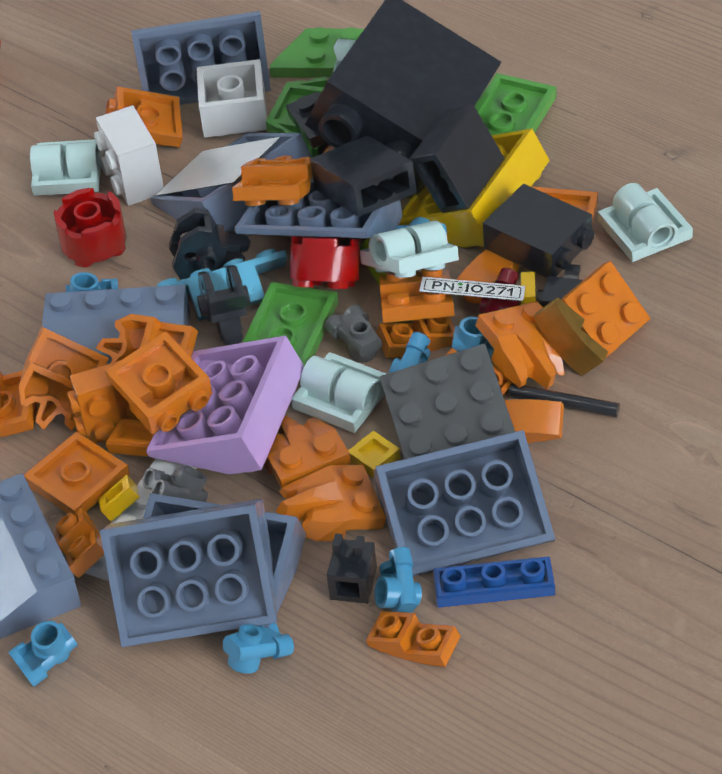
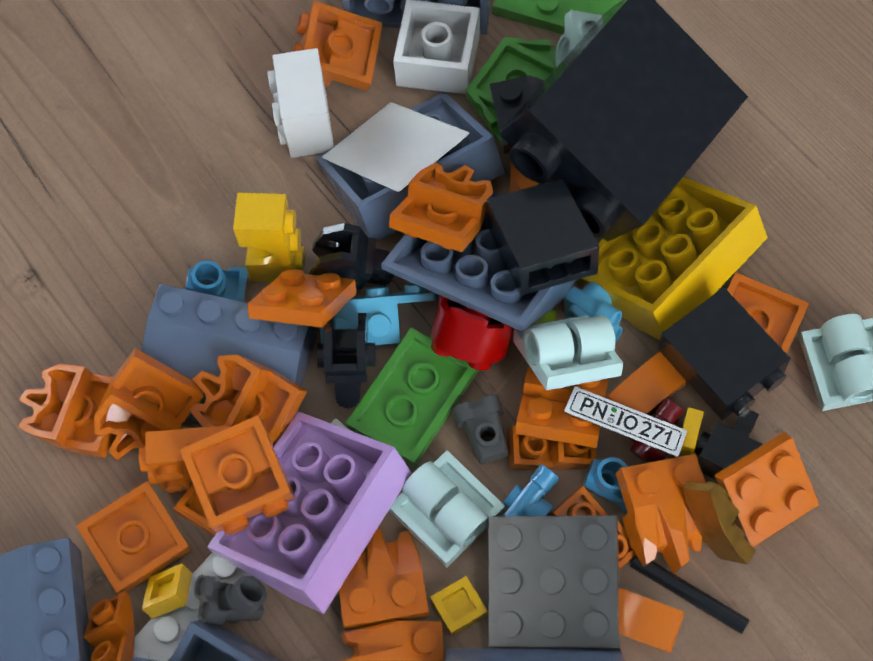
camera: 15 degrees right, 20 degrees up
(65, 167) = (233, 90): light aqua plate -> none
(90, 227) = (225, 174): red brick -> none
(128, 219) = (269, 233): none -> yellow arch
(164, 270) = (302, 298): none -> orange plate
(457, 158) = (656, 238): black brick -> none
(514, 104) = (746, 150): bright green plate -> none

